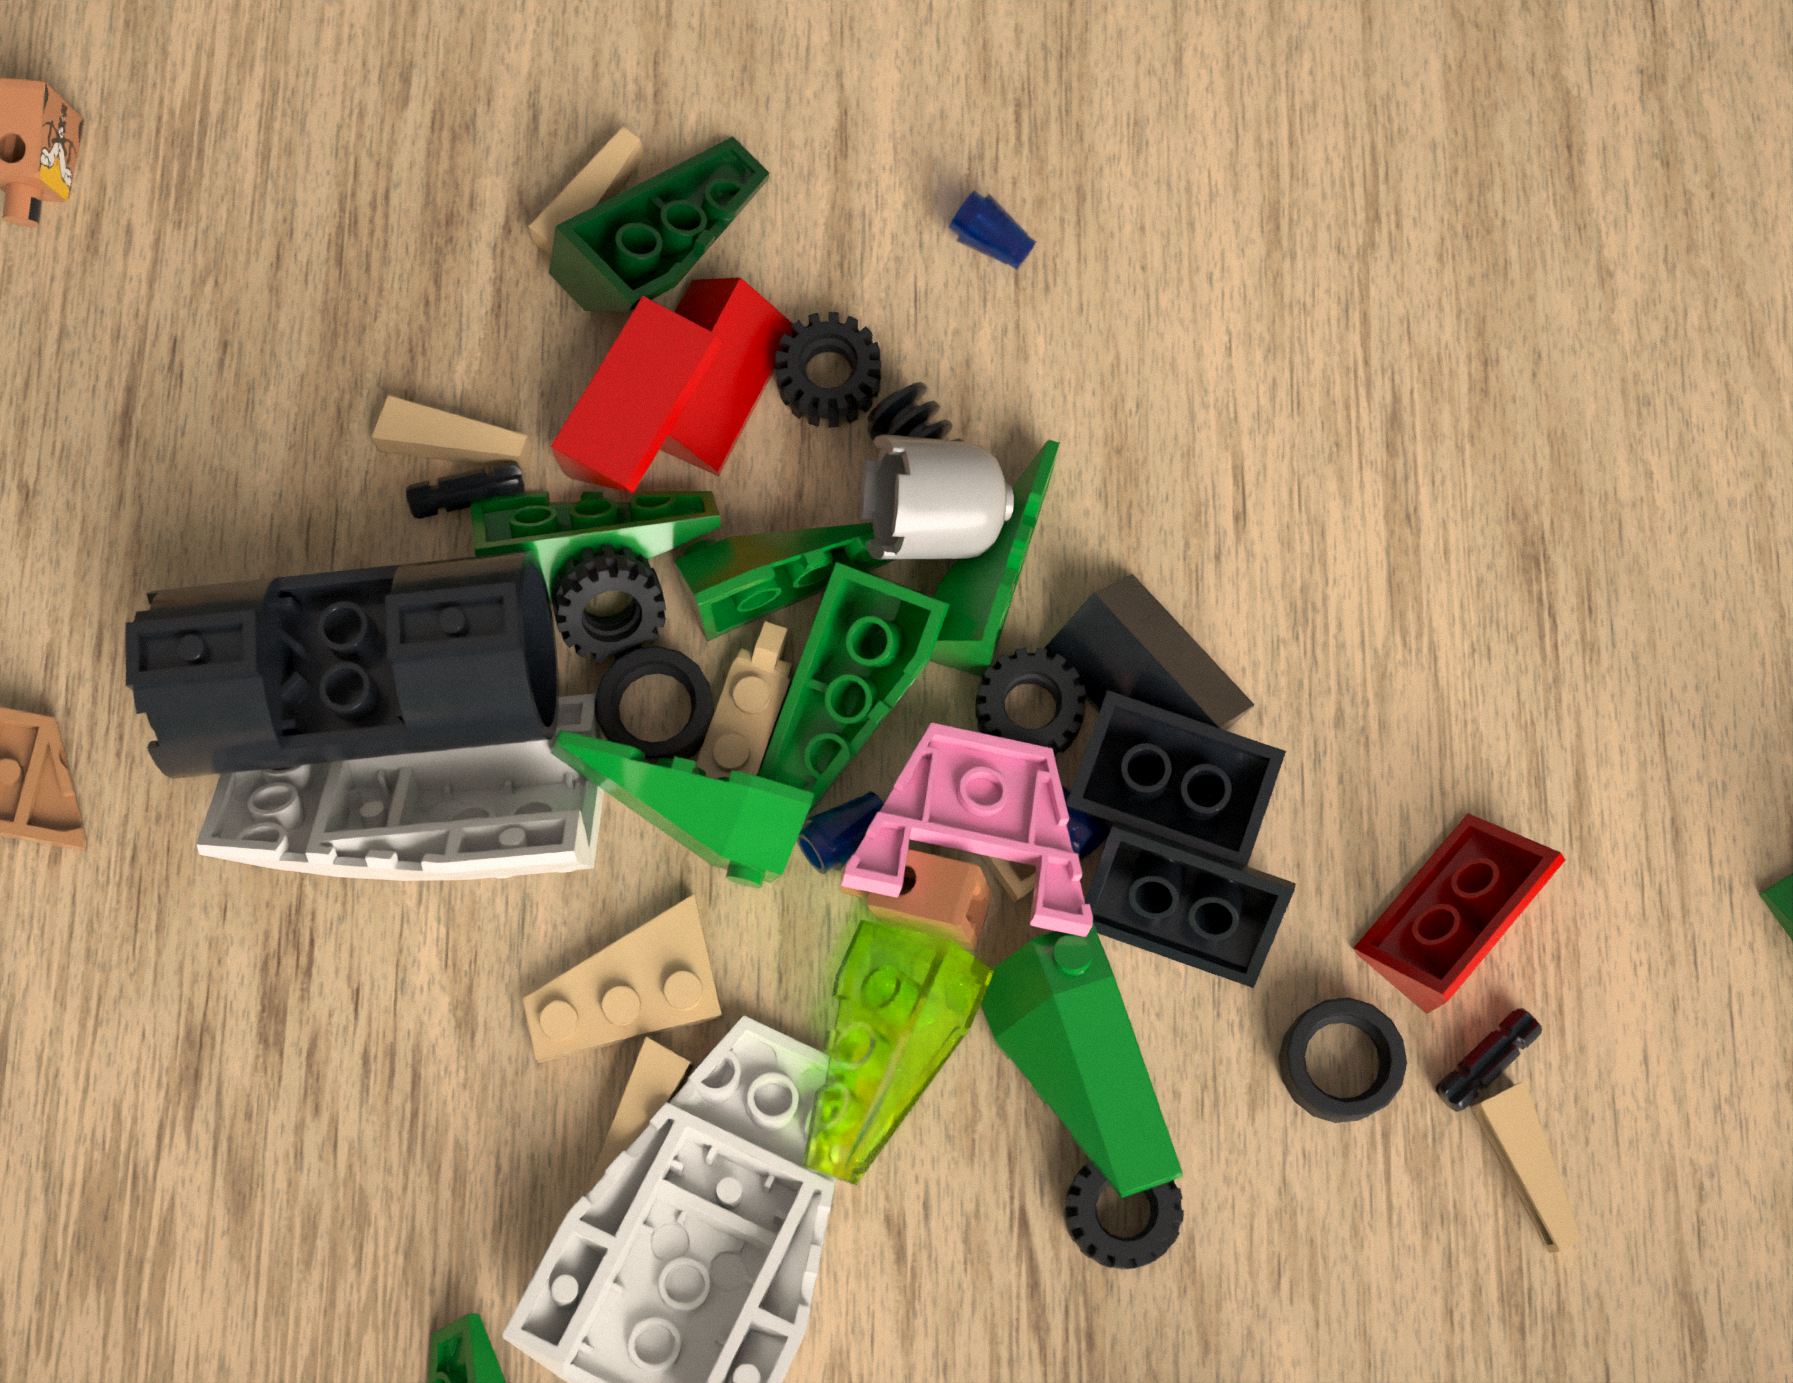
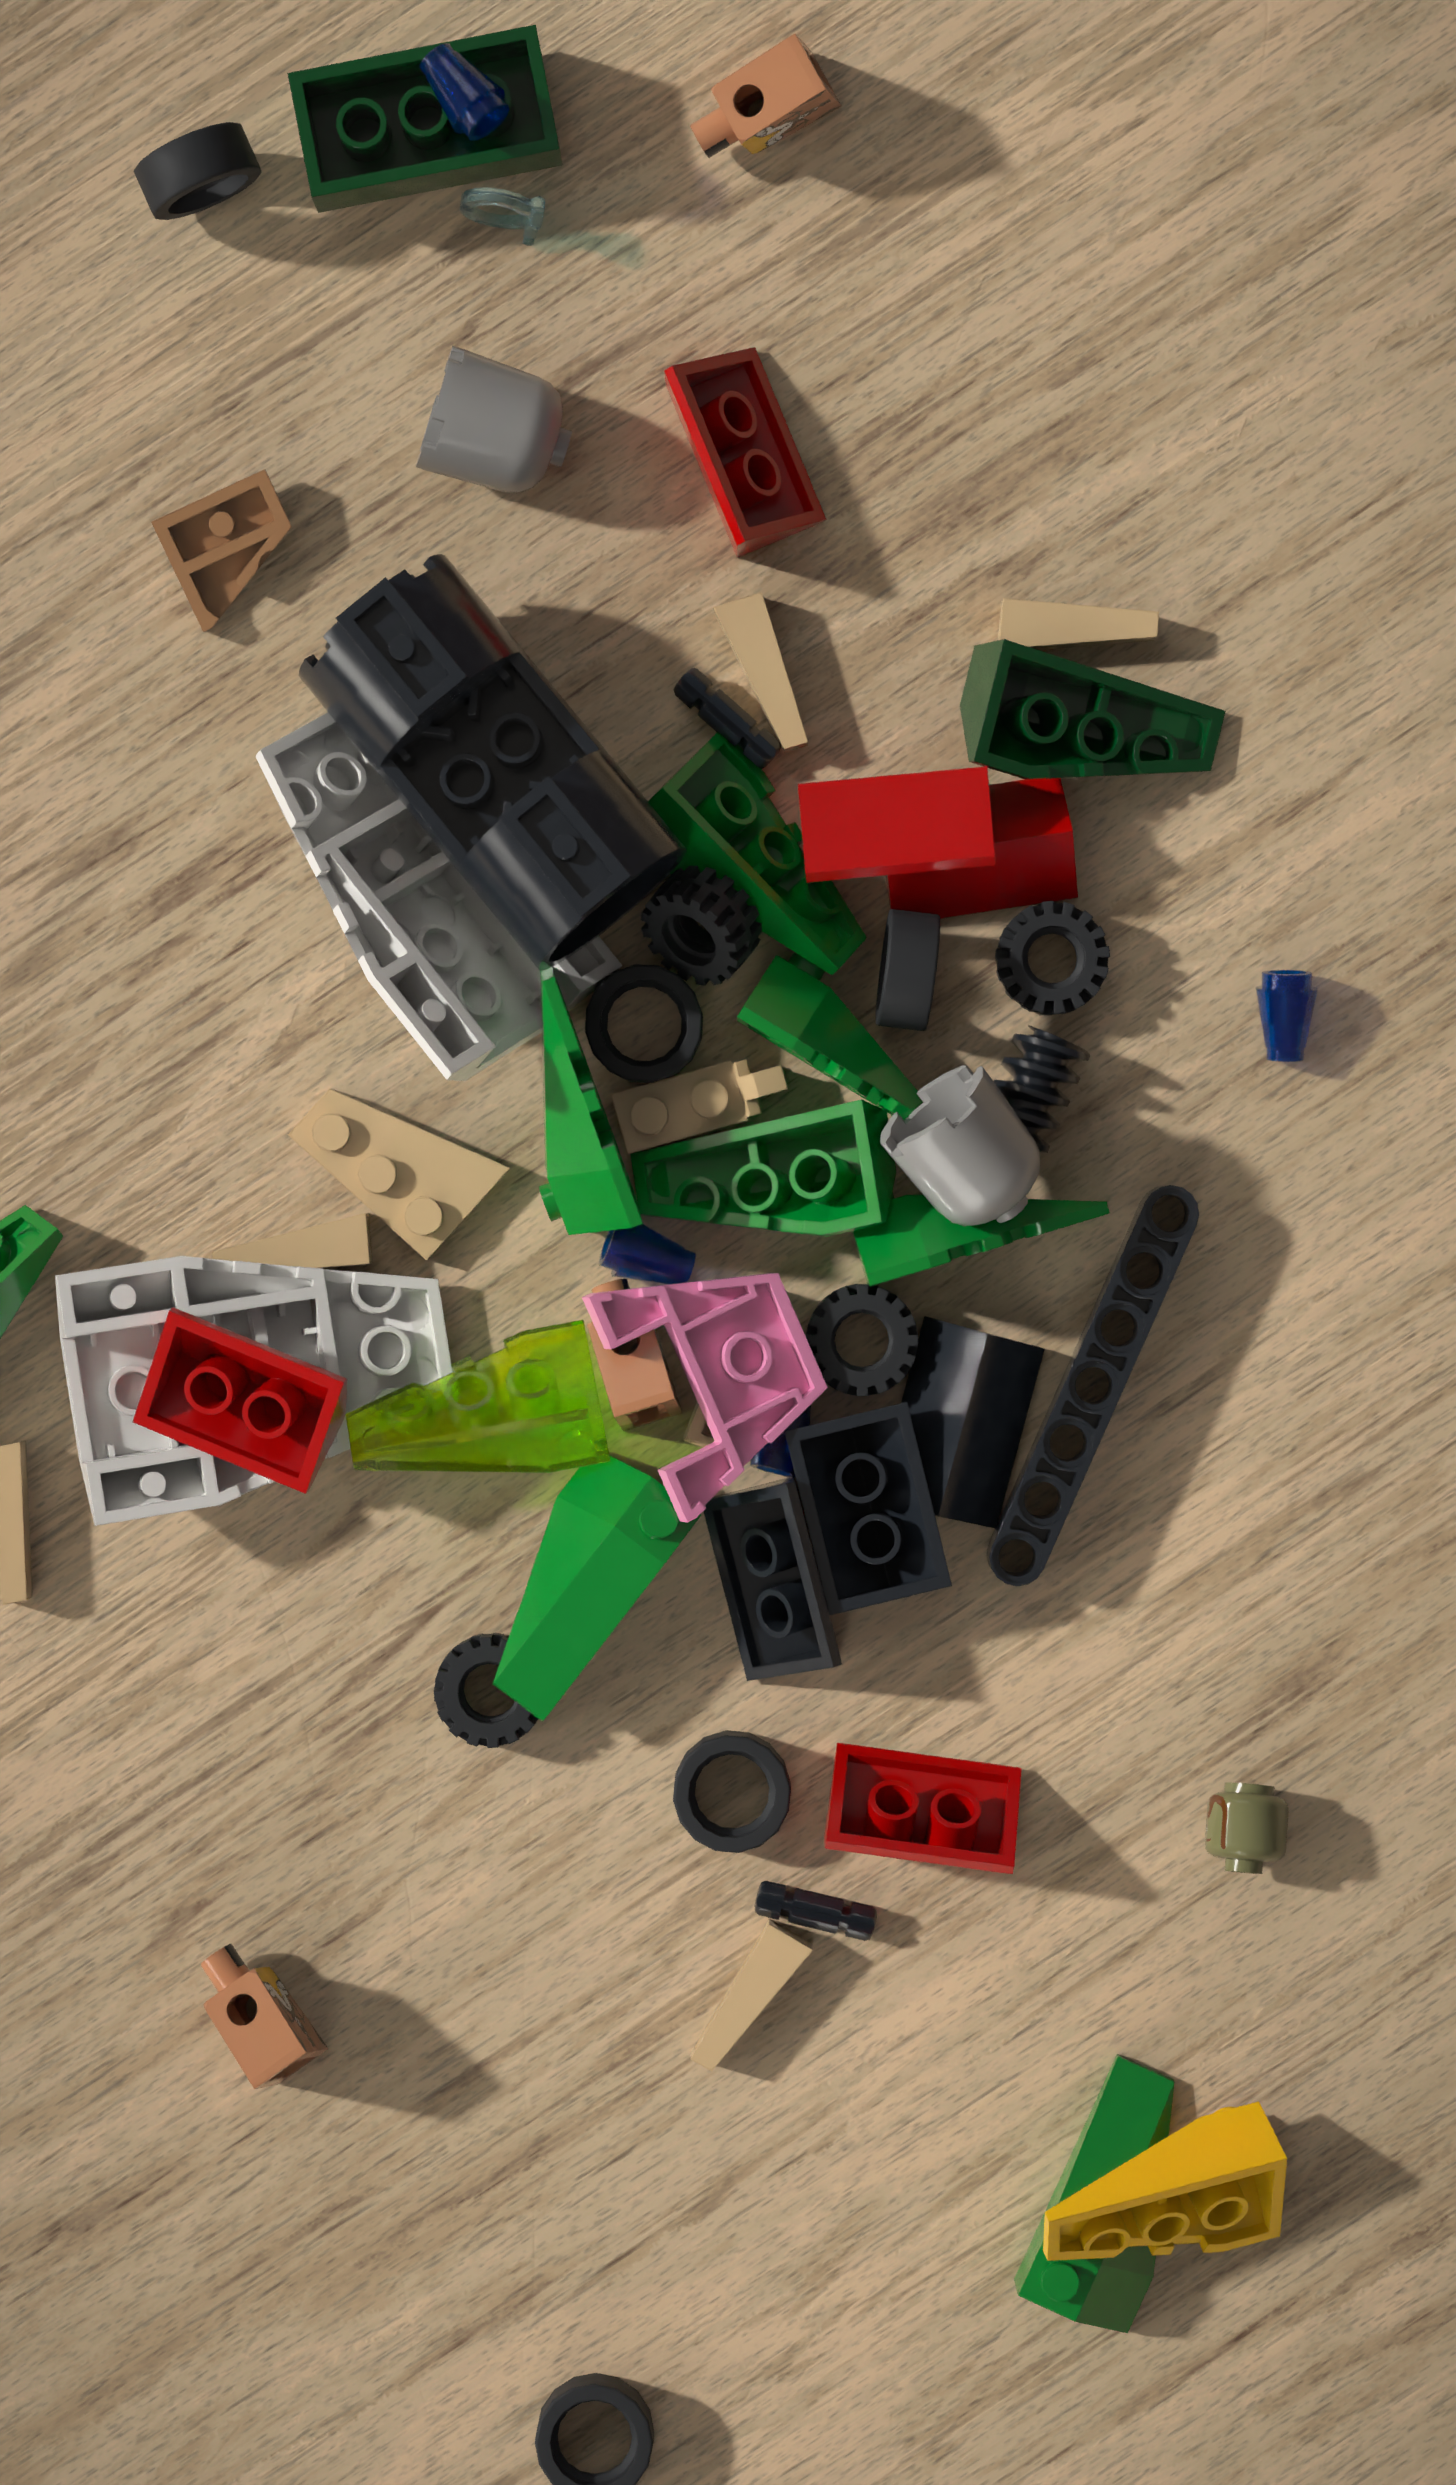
camera: 60 degrees right, 15 degrees up
(101, 503) = (493, 425): none -> light grey cylinder
(269, 347) = (744, 448): none -> red slope
(726, 1244) = (241, 1401): none -> red slope
(759, 470) = (908, 970): none -> black tyre
(1188, 580) = (1089, 1352): none -> black beam
(1630, 661) = (1246, 1826): none -> olive head

